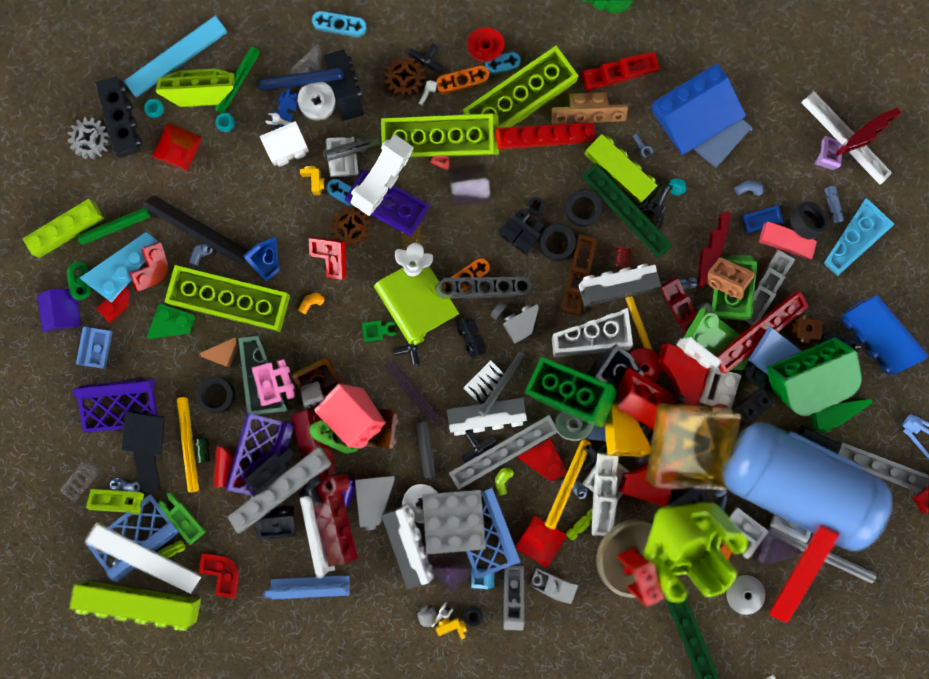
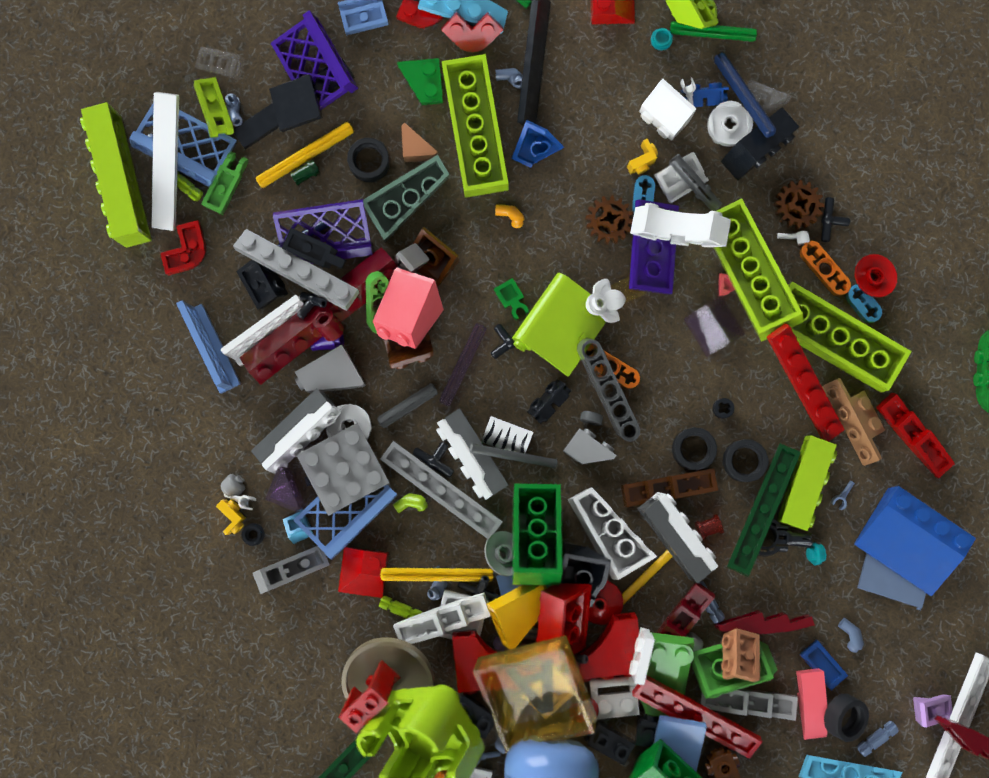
camera: 70 degrees right, 0 degrees up
(223, 467) = (296, 199): red slope -> none
(267, 384) = (401, 206): bright pink plate -> none
(325, 26) = (834, 123): medium azure beam -> none
(334, 254) = (574, 212): plate -> none
(515, 226) = (690, 395): black hips -> none
(544, 460) = (451, 538): red wing -> none
(553, 586) = (321, 607): light grey slope -> none

